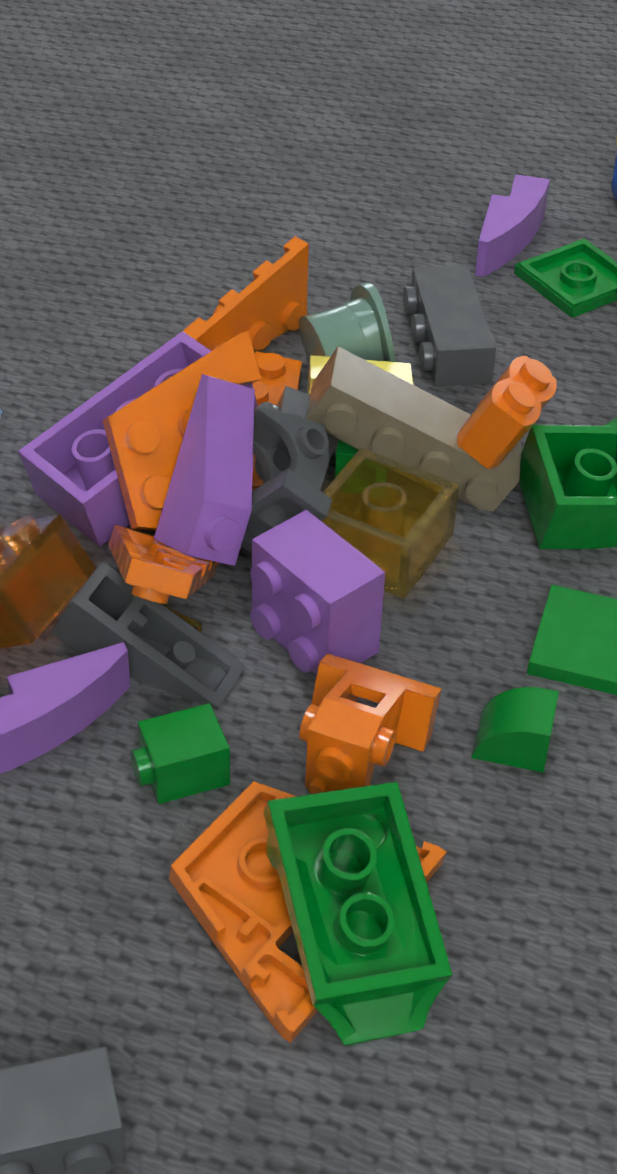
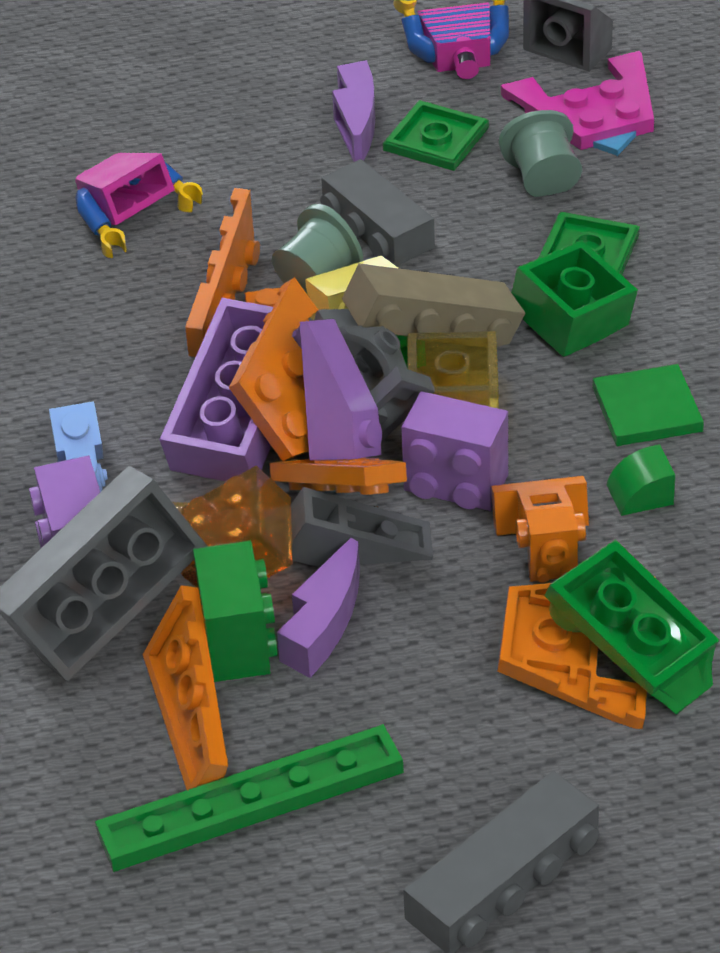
camera: 25 degrees left, 0 degrees up
(181, 754) = (443, 593): green brick -> none
(218, 211) = (123, 188): none -> dark pink torso
(507, 411) = (495, 264): orange brick -> none

